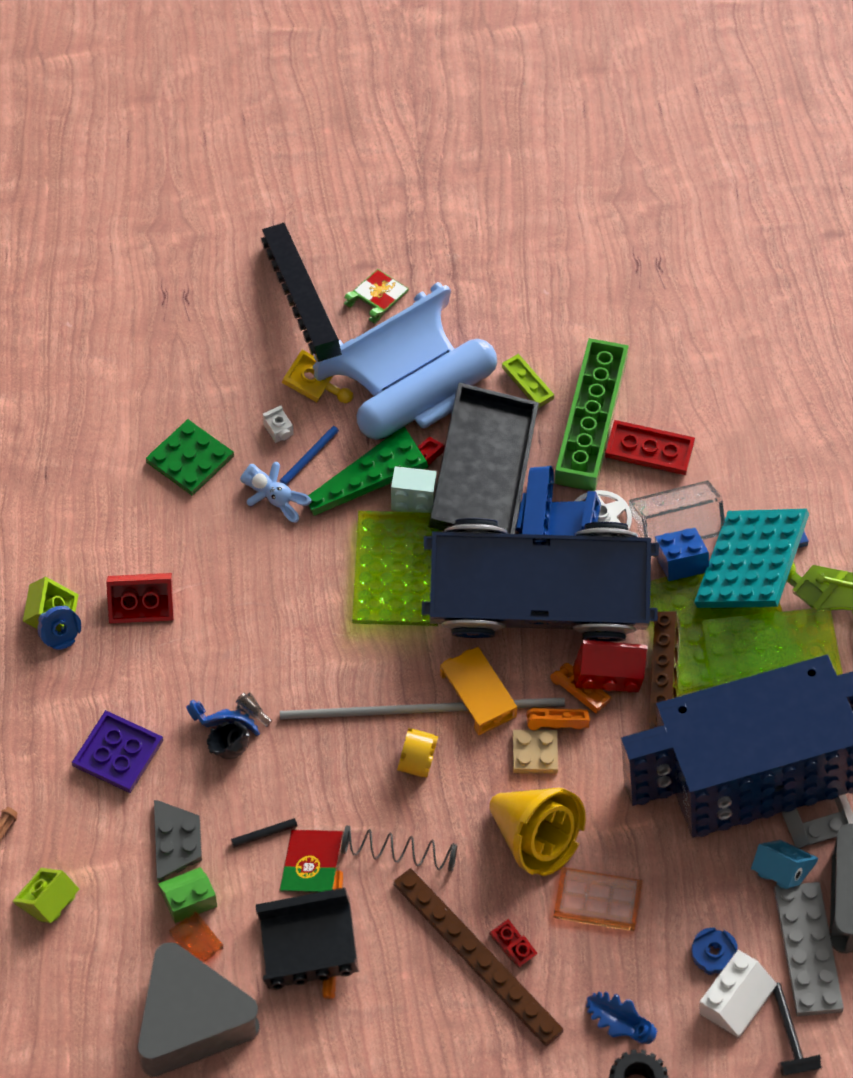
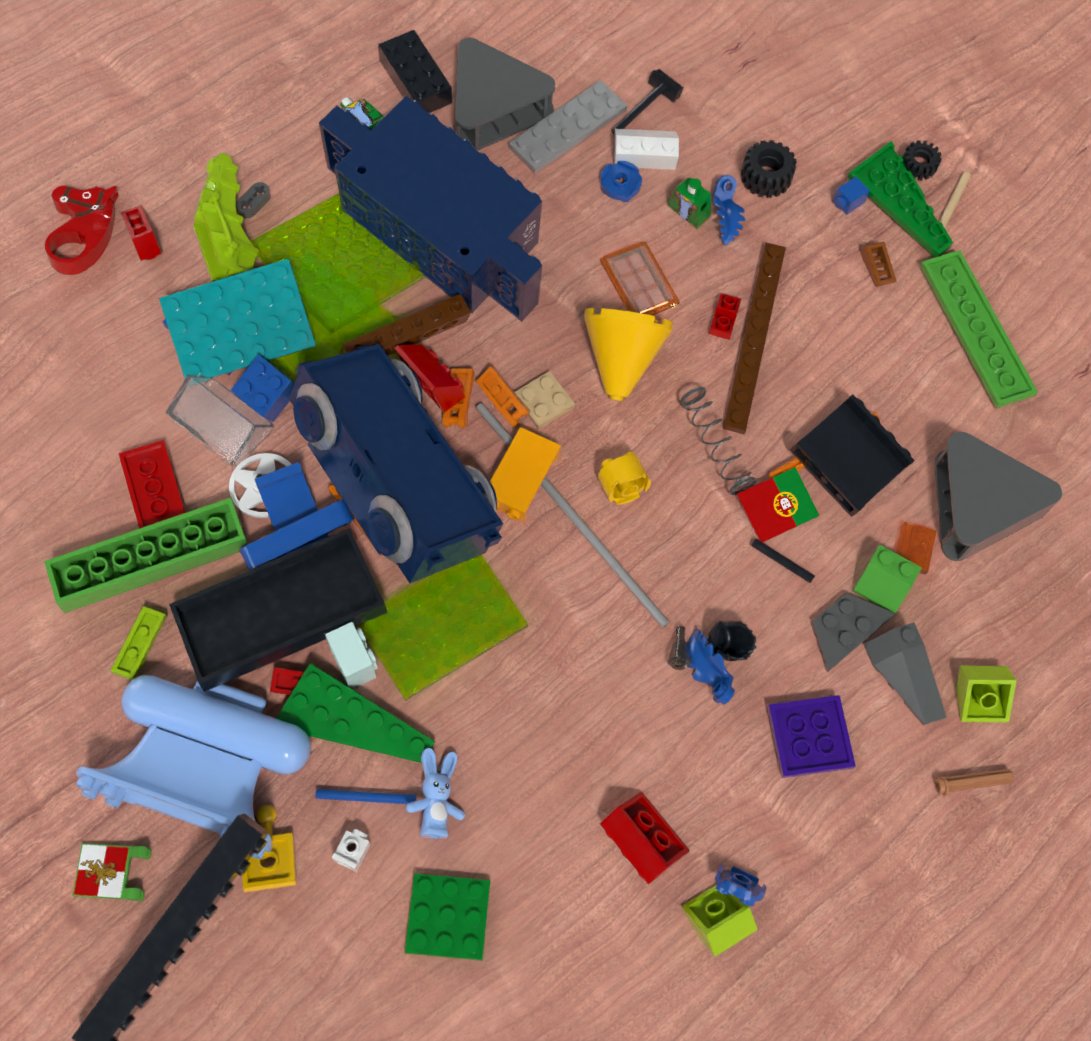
camera: 130 degrees left, 10 degrees up
(107, 856) = (906, 666): none -> dark grey wedge
(647, 986) = (691, 202): none -> green torso
(783, 863) = (518, 160): dark azure slope -> none

